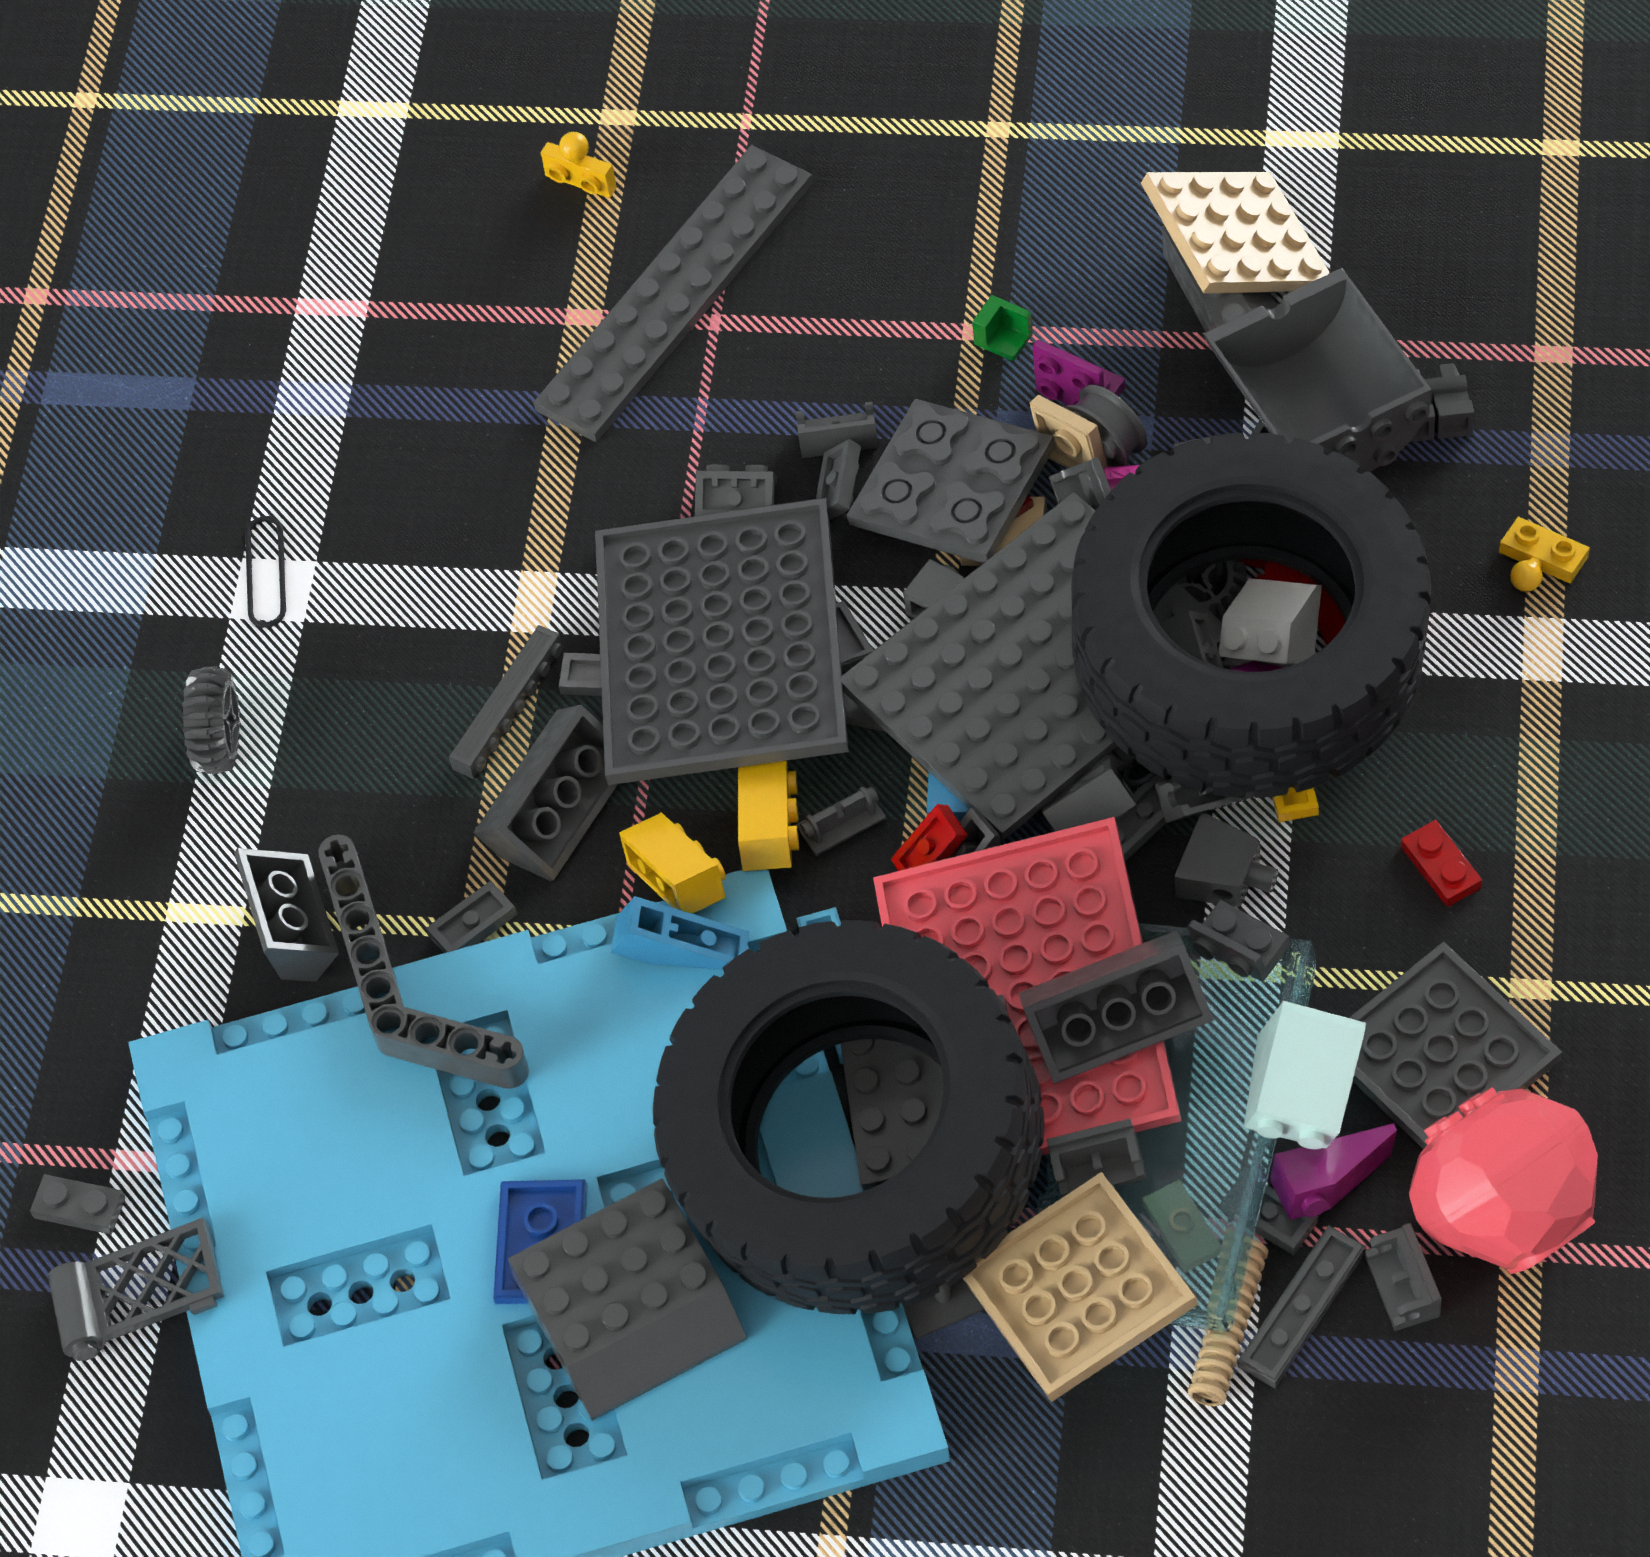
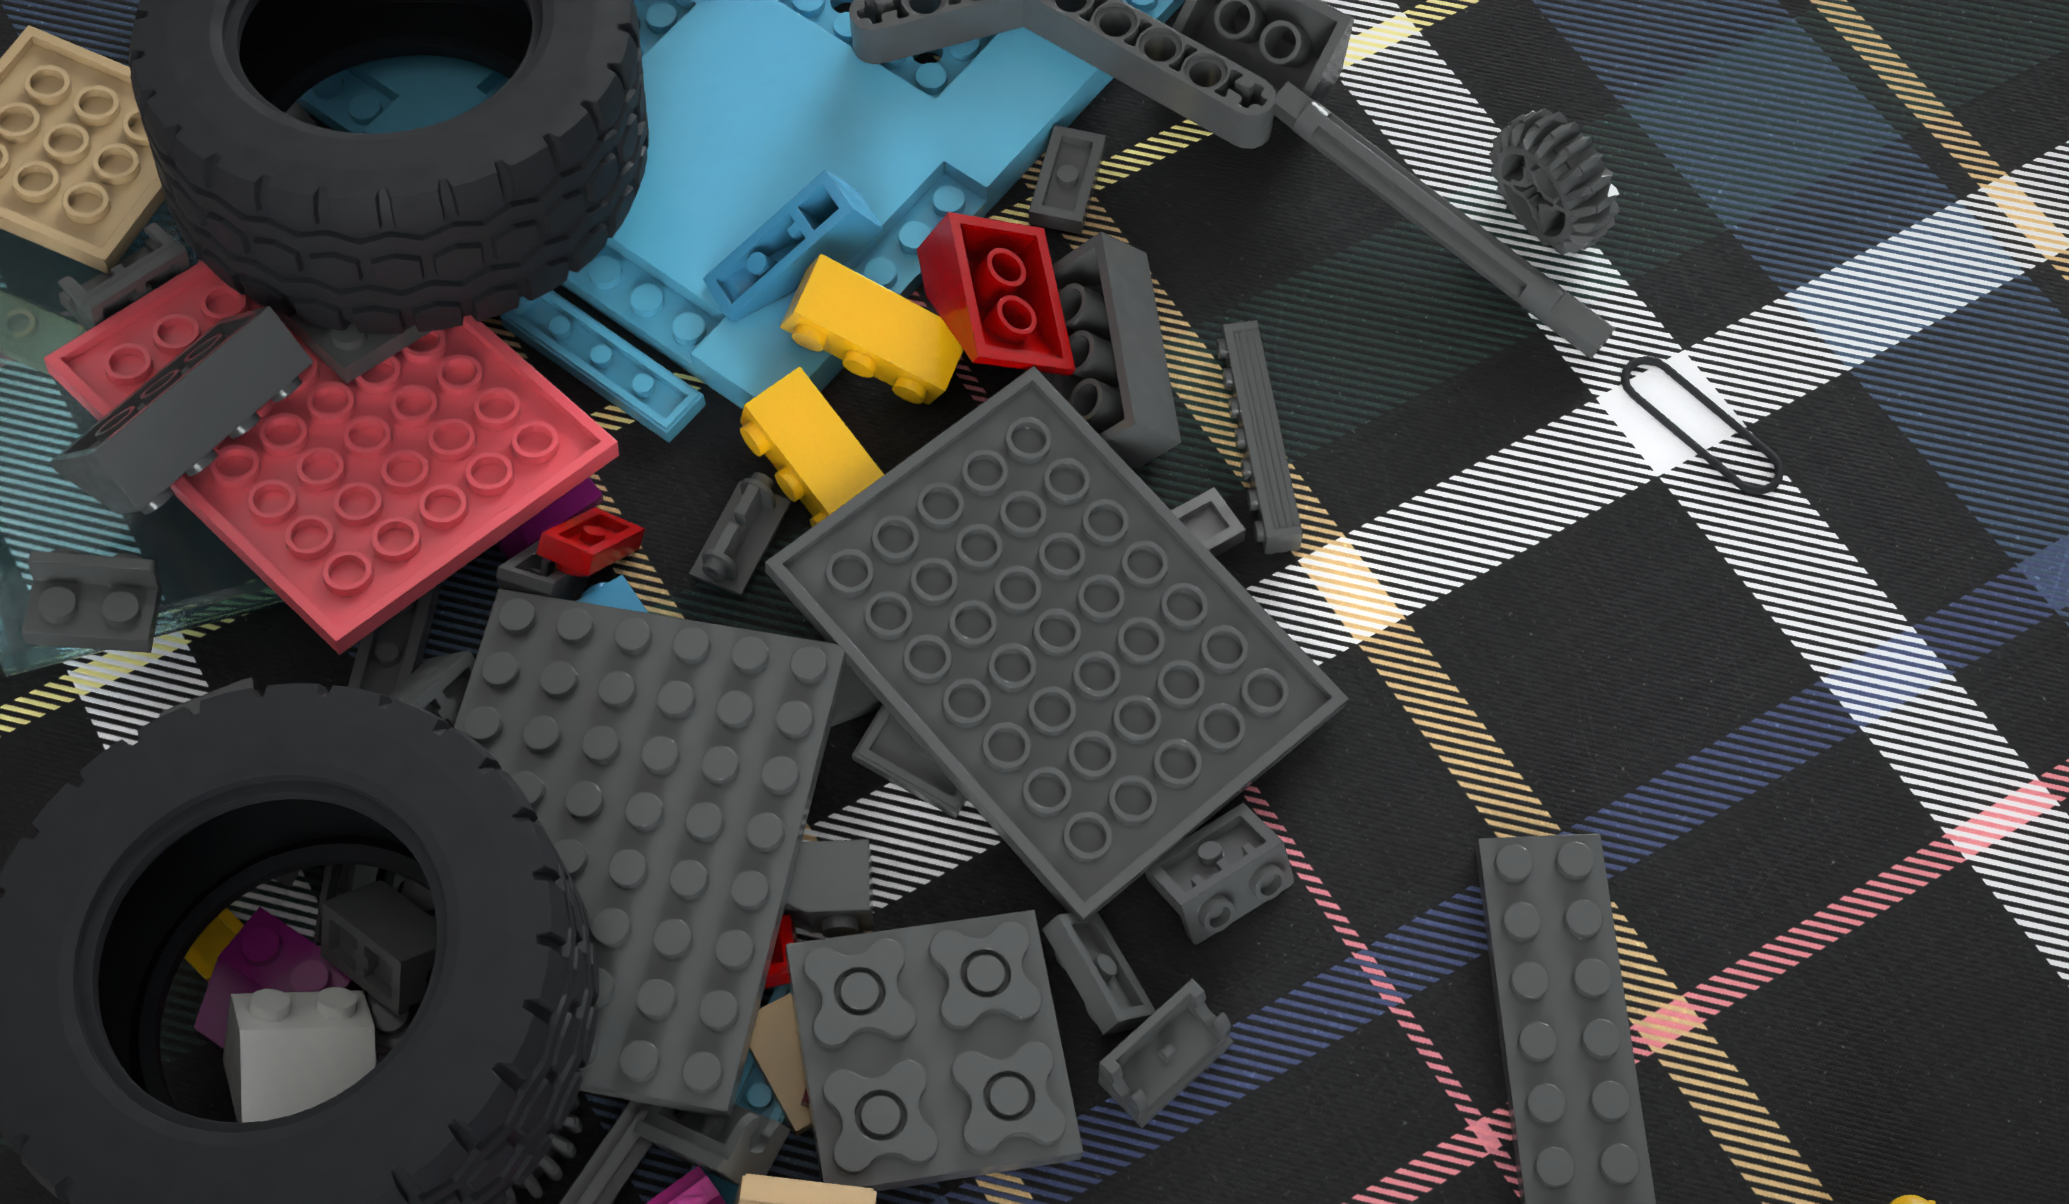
camera: 135 degrees right, 5 degrees up
(292, 746) = (1443, 221): none -> dark grey piece
(587, 840) = (997, 292): none -> red slope

